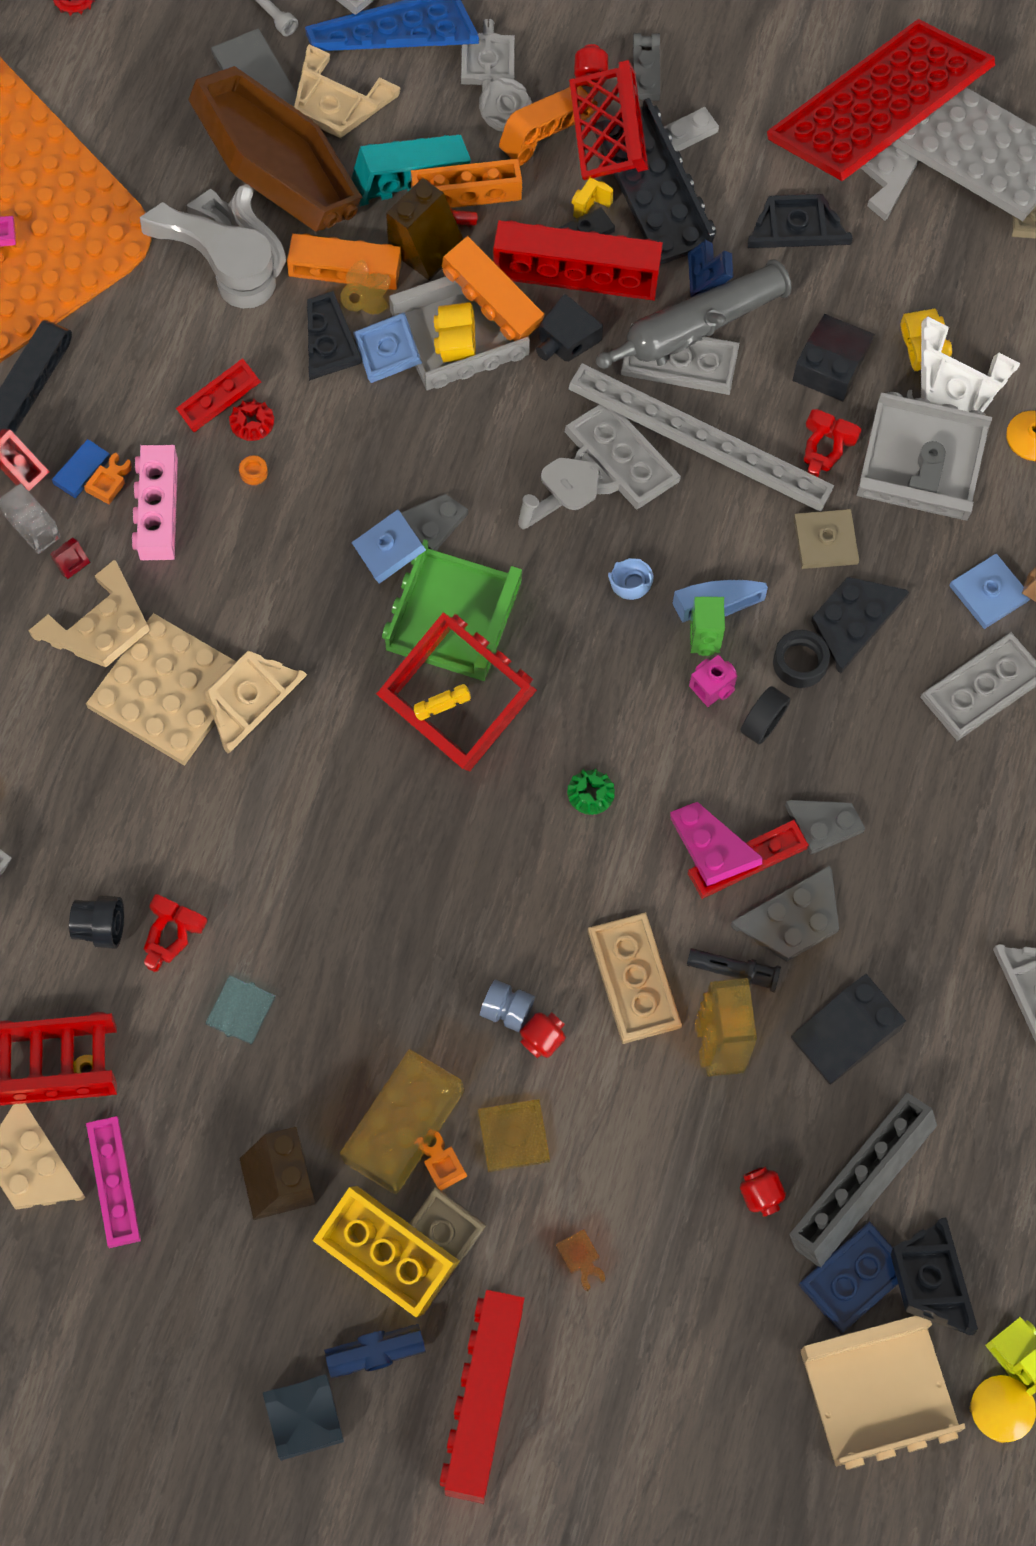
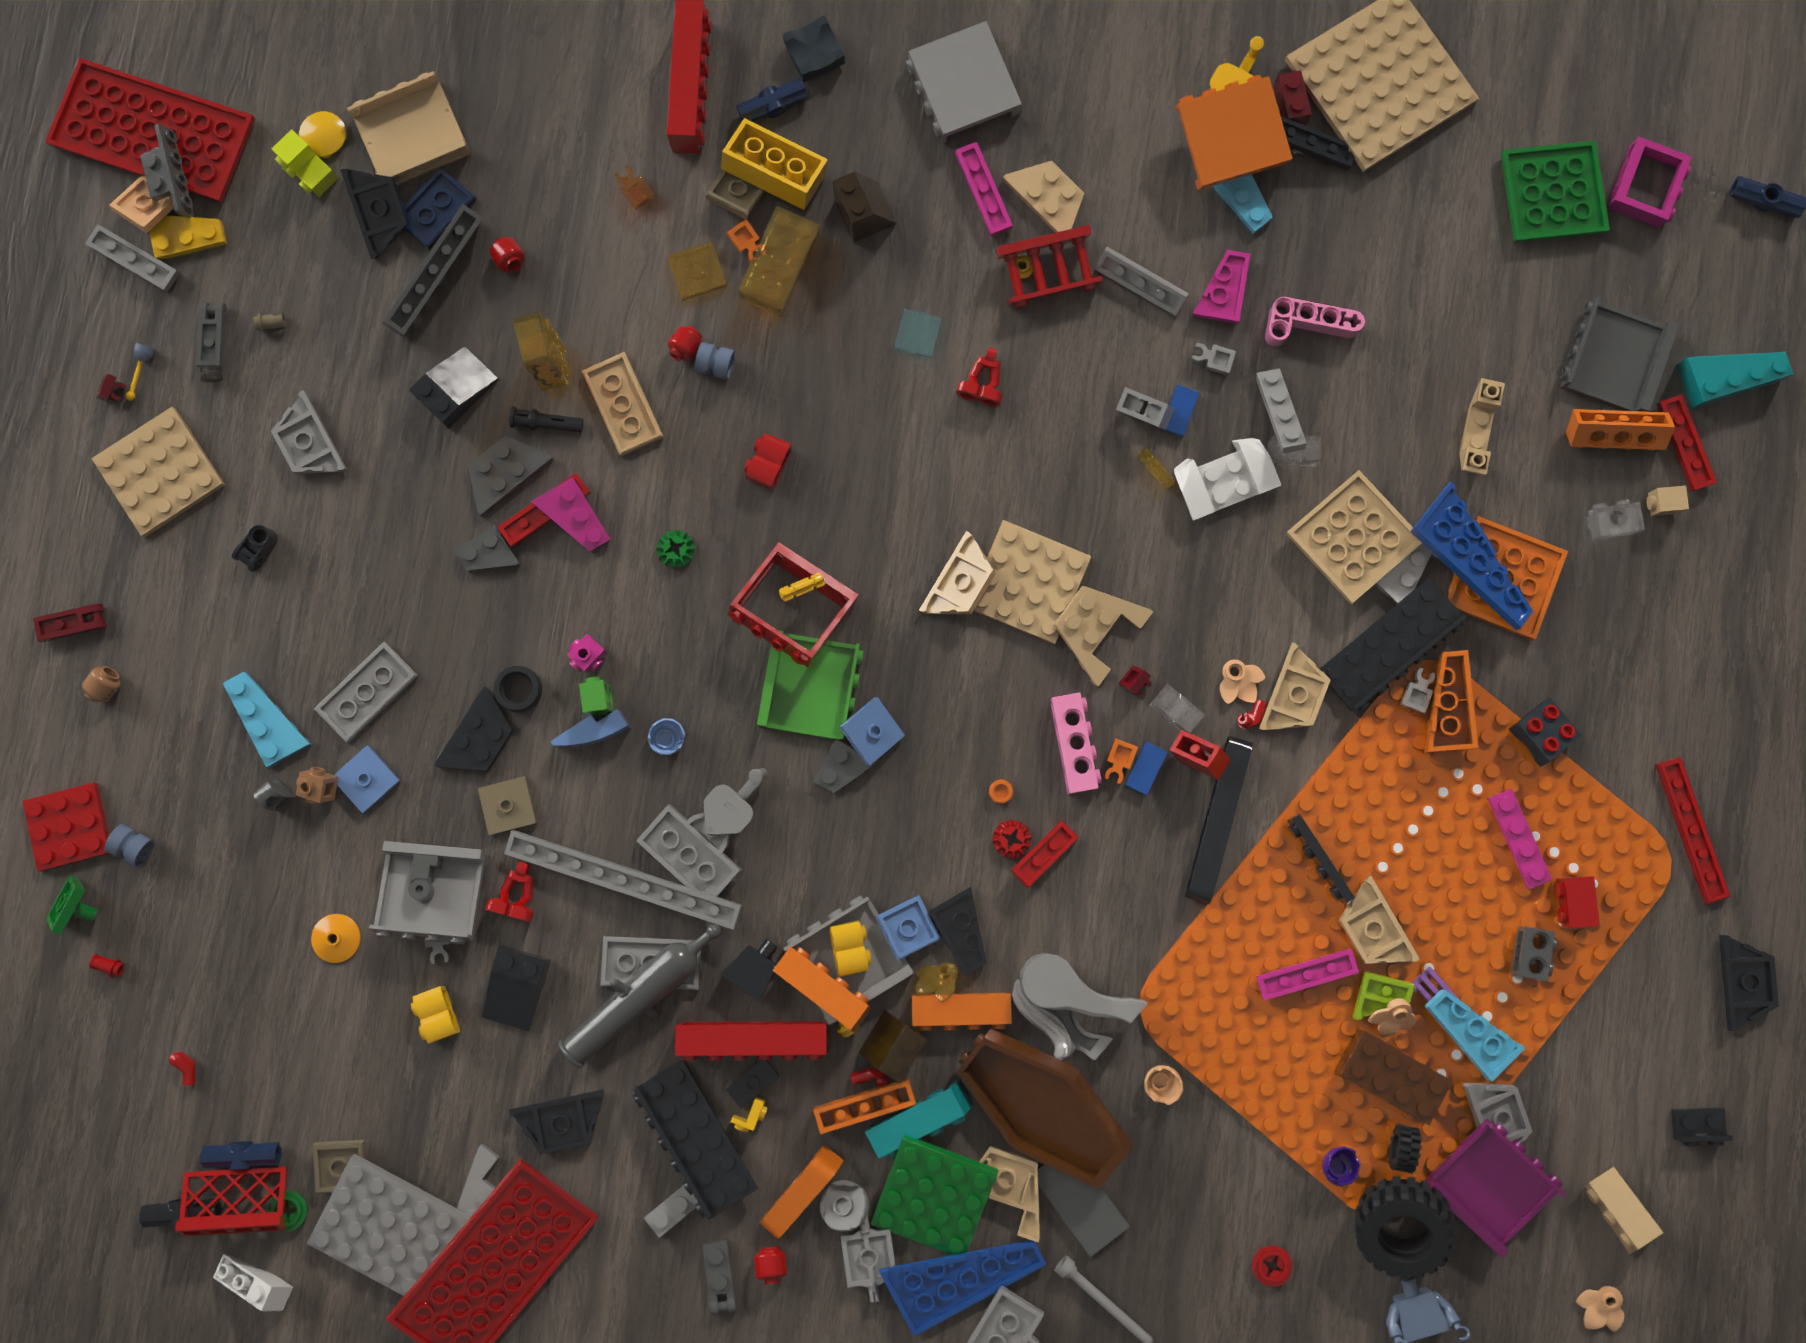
camera: 175 degrees right, 15 degrees up
(98, 921) = (1039, 374): black piece -> none
(106, 1334) = (963, 80): none -> light grey panel
(141, 161) = (1163, 1084): none -> light nougat hair
(408, 94) = (934, 1196): none -> green plate
(459, 873) = (768, 461): none -> red brick
(630, 114) = (721, 1192): red fence -> none
(707, 271) = (637, 1046): dark blue tile -> none
(765, 715) = (541, 627): black tyre -> none
(953, 382) = (407, 967): white wing -> none

